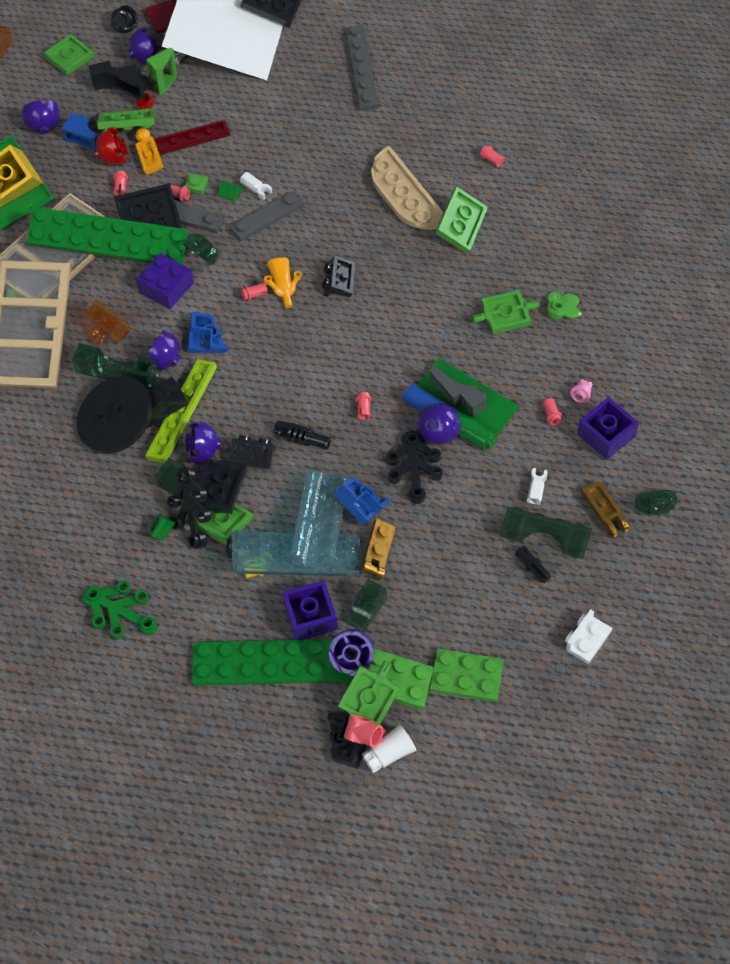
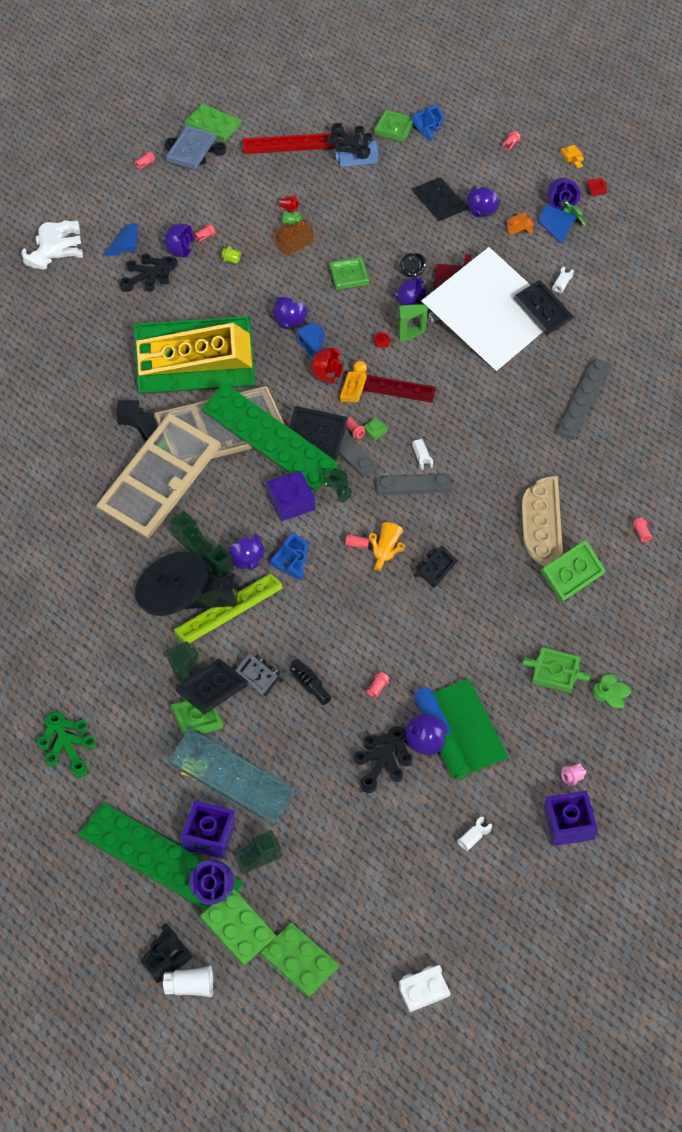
camera: 30 degrees right, 5 degrees down
(106, 323) = (219, 506): clear orange brick -> none
(120, 179) = (316, 394): coral pin -> none
(124, 79) = (377, 314): black arch -> none
(127, 119) = (355, 348): bright green plate -> none
(161, 527) = (145, 695): green slope -> none
(186, 482) = (173, 692): black plant -> none
(203, 440) = (224, 643): dark purple cylinder -> none
(230, 191) = (398, 448): green slope -> none
(318, 522) = (267, 758): clear light blue plate -> none
(360, 500) = (315, 761): blue slope -> none
(363, 731) = (176, 955): coral piece -> none
(370, 693) = (201, 927): bright green plate -> none
(377, 549) = (302, 810): pearl gold plate -> none
(457, 393) = (463, 719): dark grey slope -> none
(521, 524) = (435, 858): clear green arch -> none
(532, 564) = (422, 899): black axle -> none
(554, 417) = (533, 783): coral pin -> none
(604, 507) = (520, 885): pearl gold hinge -> none
(655, 502) = (568, 907): clear green bracket -> none

